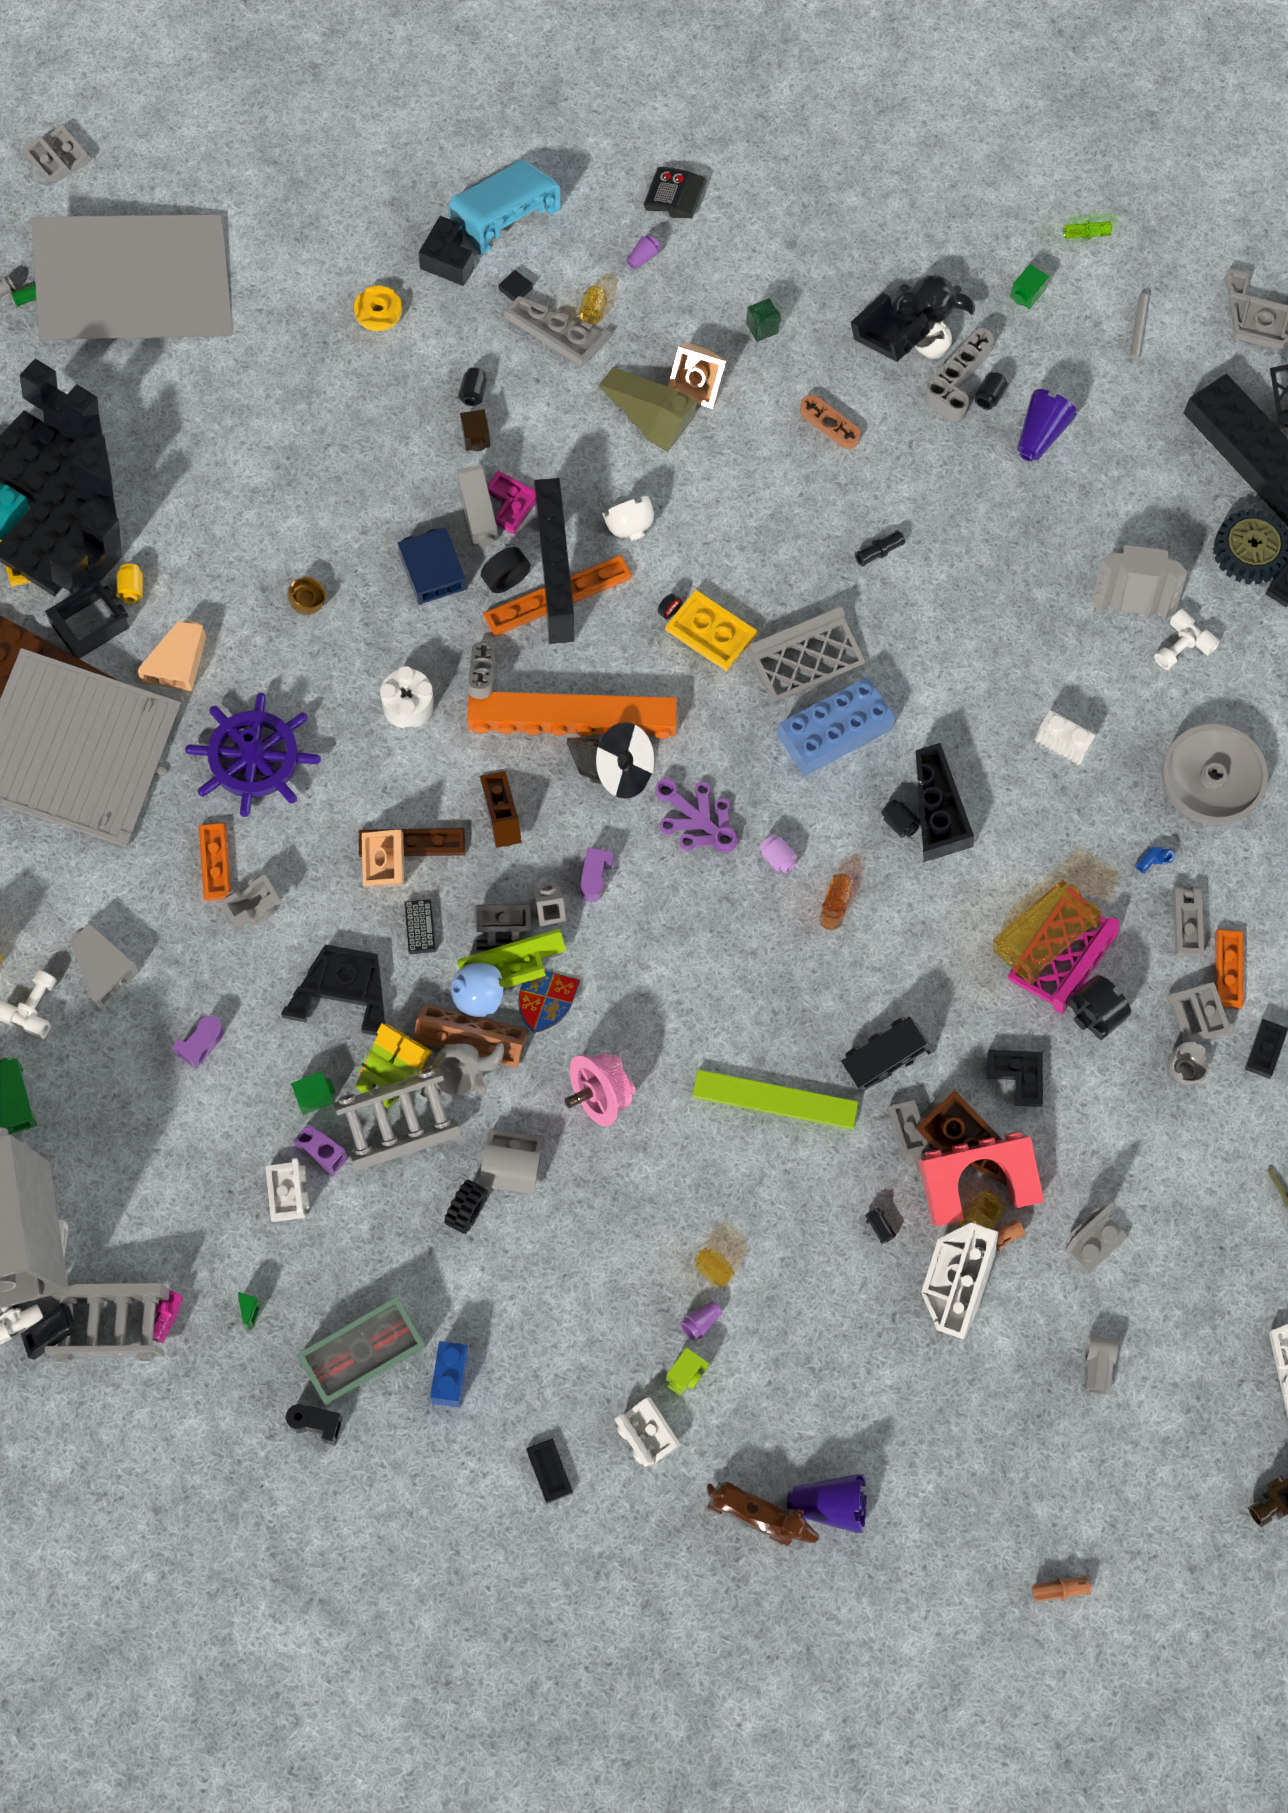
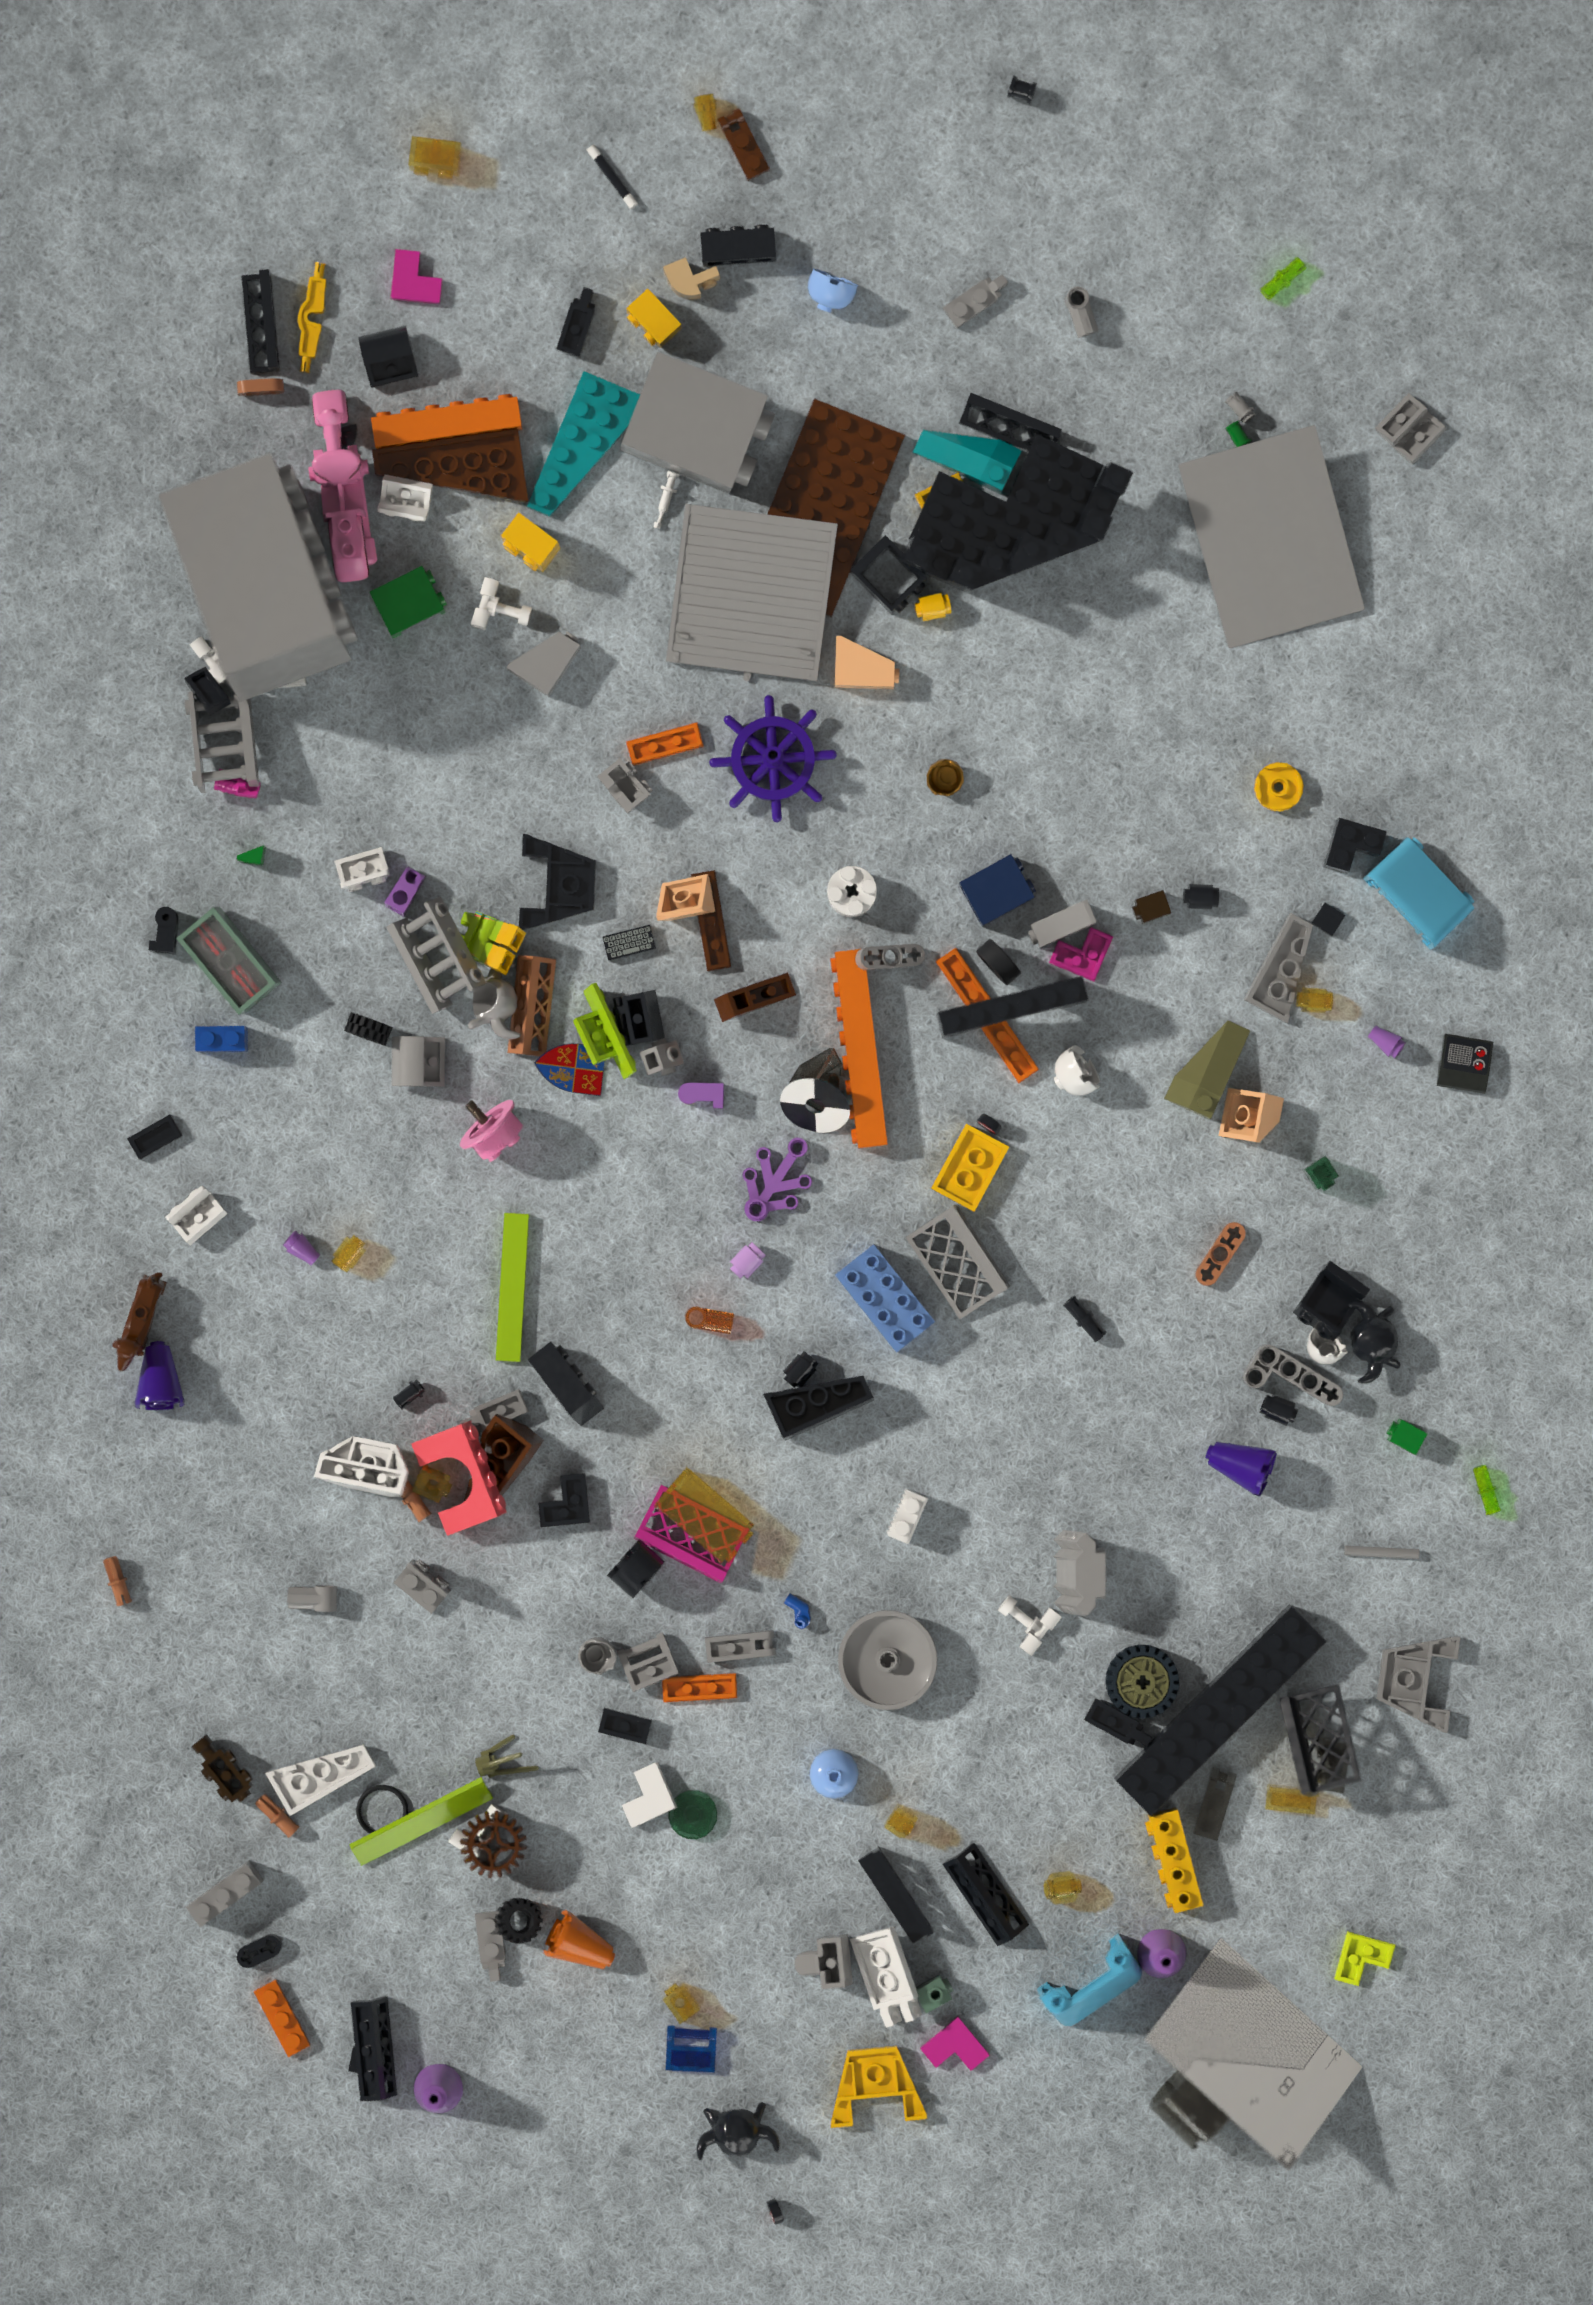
camera: 85 degrees right, 20 degrees up
(201, 1042) = (494, 771): medium lavender leg -> none
(313, 1092) = (455, 876): green brick -> none
(477, 989) = (568, 1005): light blue cylinder -> none
(686, 1372) = (253, 1241): lime brick -> none

